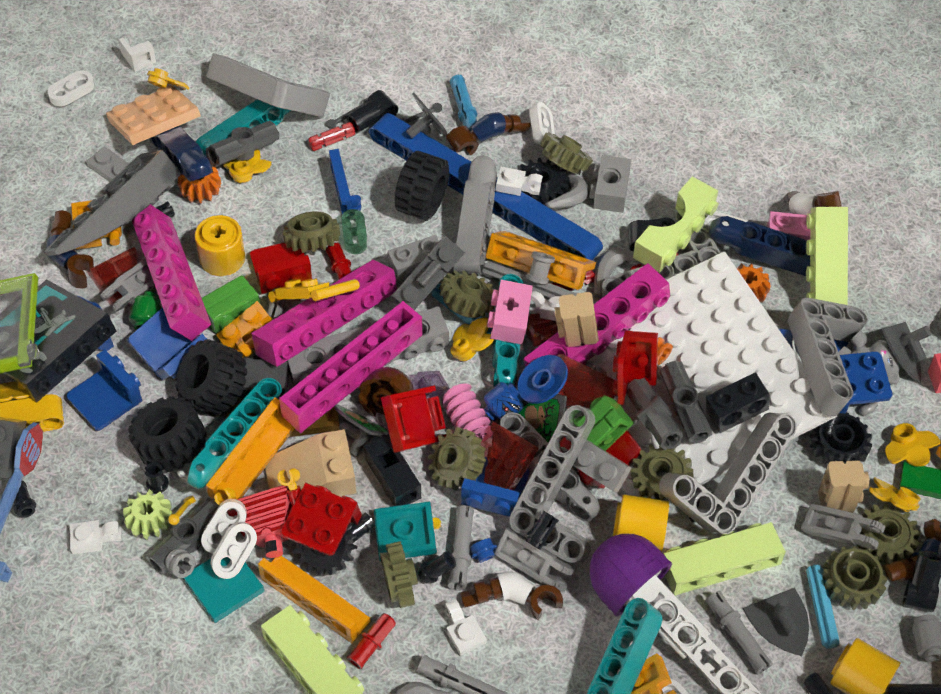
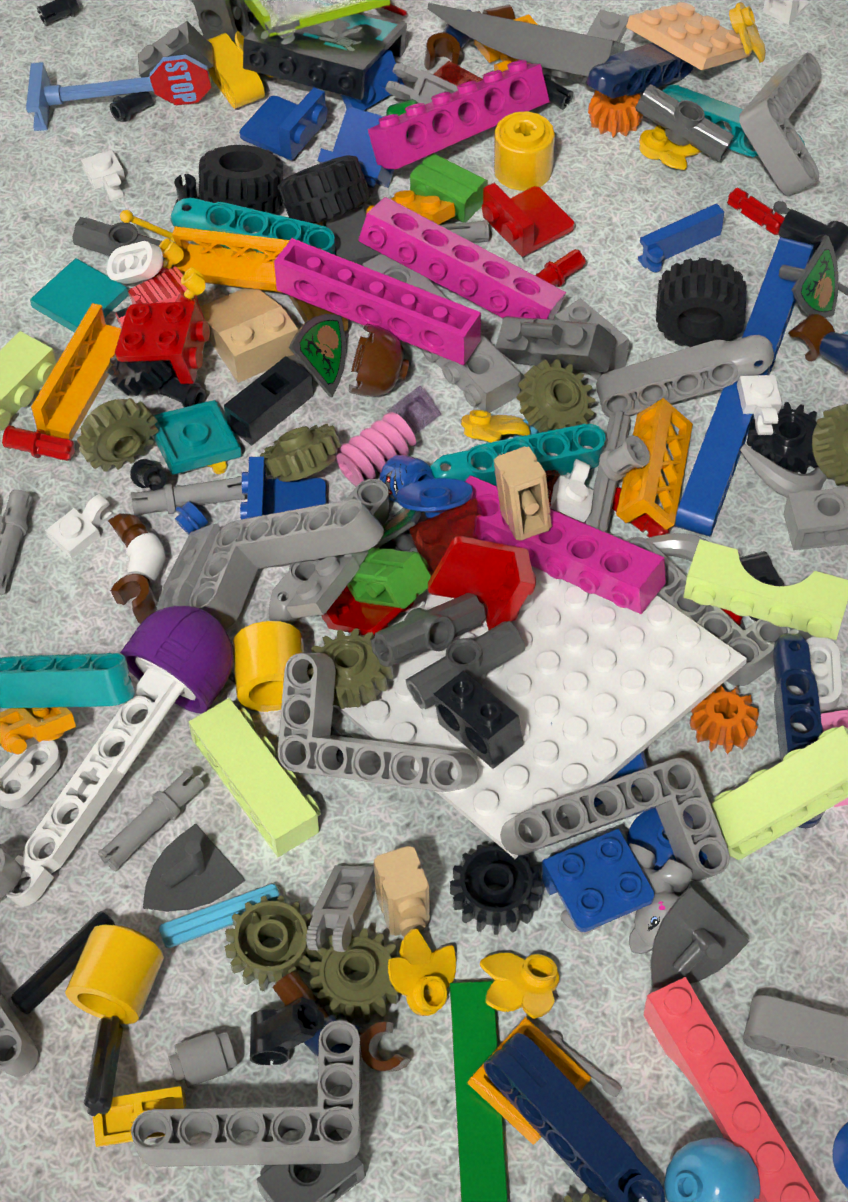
camera: 75 degrees right, 0 degrees up
(145, 504) = (144, 200): yellowish green gear -> none
(187, 566) = (91, 240): light grey bush -> none
(236, 550) = (113, 278): white plate -> none
(311, 231) = (585, 226): olive gear -> none
(311, 289) = (471, 231): yellow plate -> none
(359, 231) = (615, 273): clear green beam -> none
(413, 418) = (342, 394): red container -> none
(507, 458) = (315, 492): clear red wing -> none
(511, 311) = (541, 429): bright pink brick -> none
(541, 530) = (206, 551): black pin -> none
(663, 350) = (538, 617): orange bush -> none

